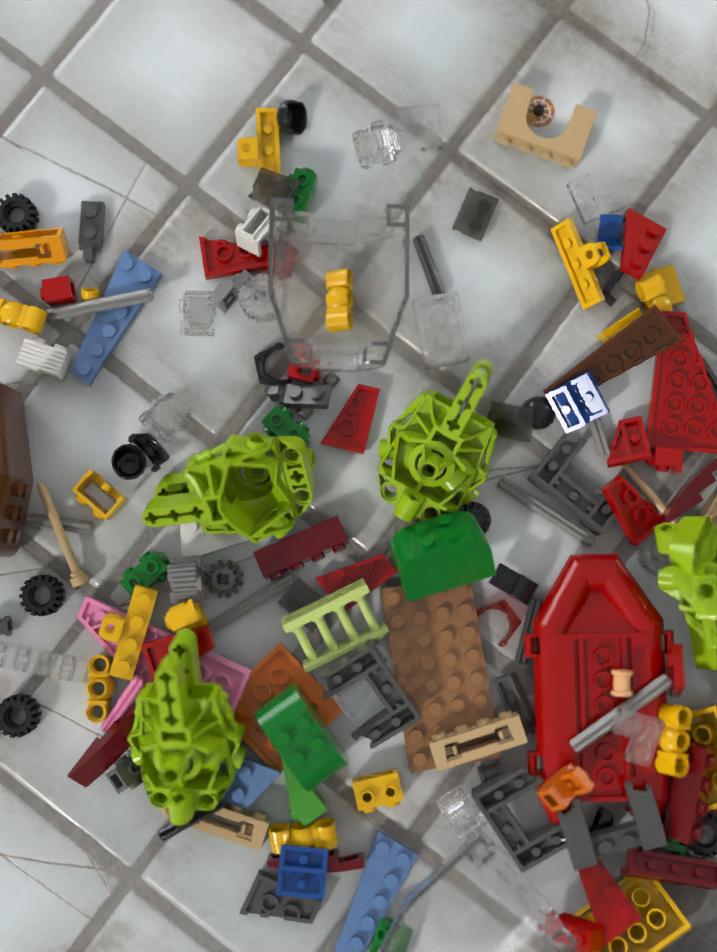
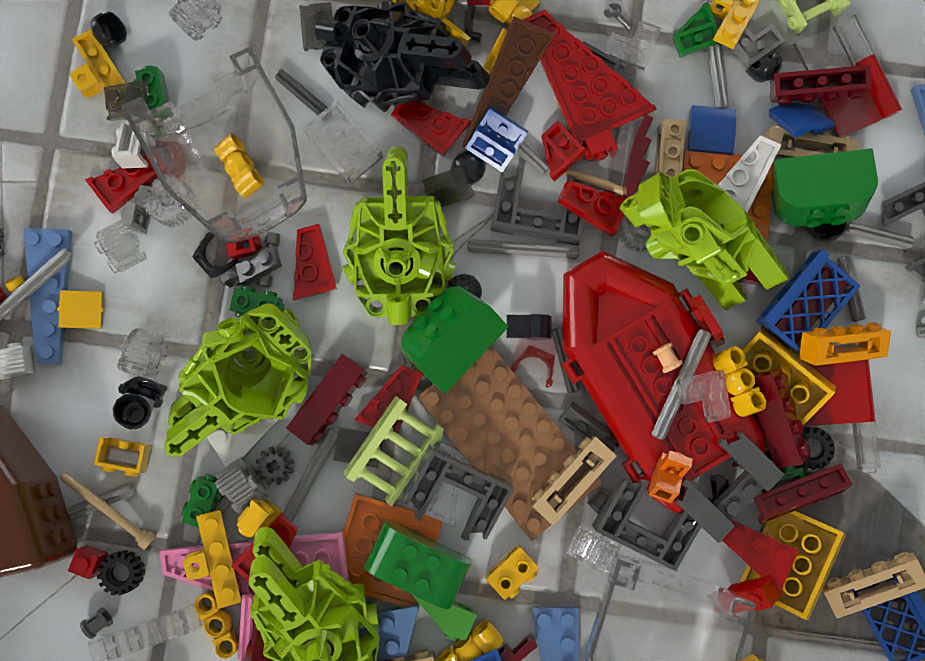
camera: 30 degrees left, 0 degrees up
(19, 570) = (86, 561): none -> red brick
(133, 347) = (80, 309): none -> yellow piece
(525, 356) = (430, 125): none -> red wing
(533, 296) = (408, 63): none -> black piece

